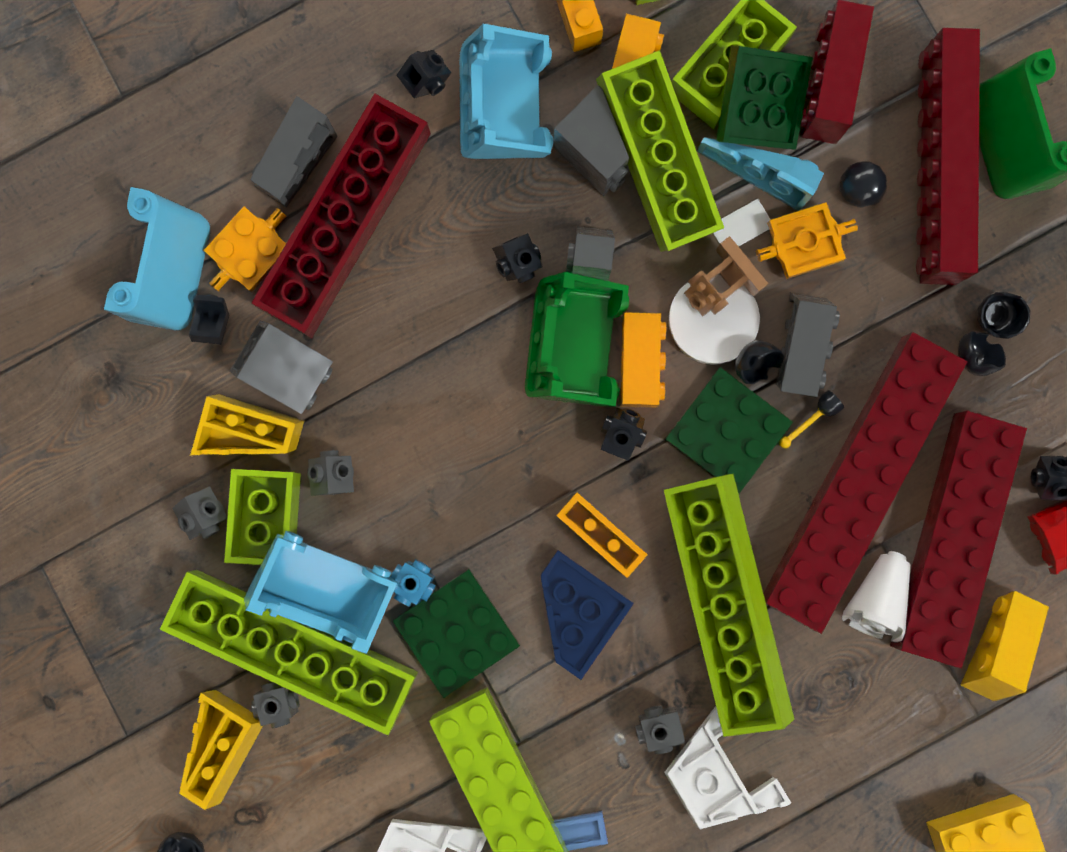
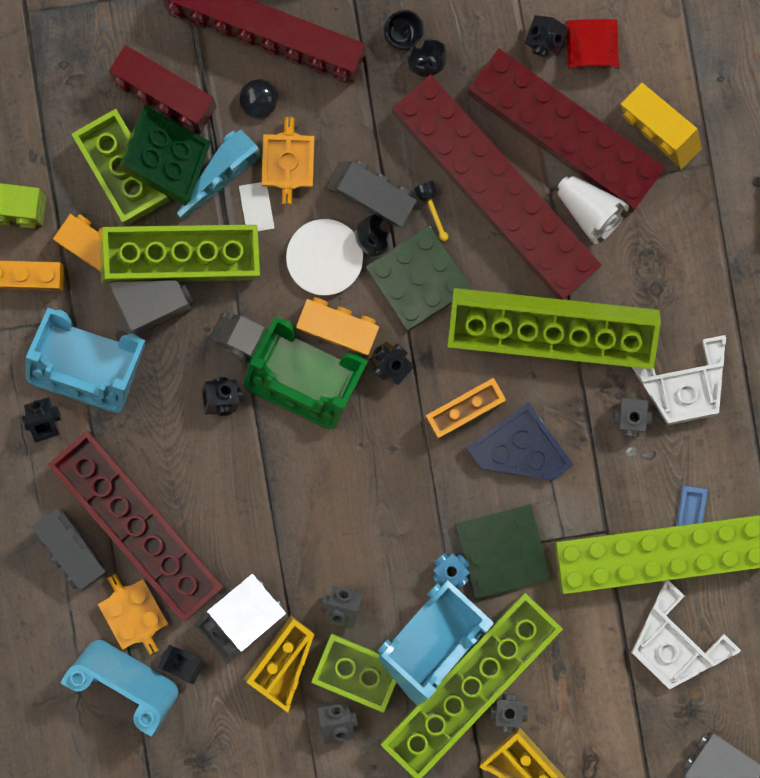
camera: 75 degrees left, 0 degrees up
(735, 270) = (294, 227): medium nougat tile -> none

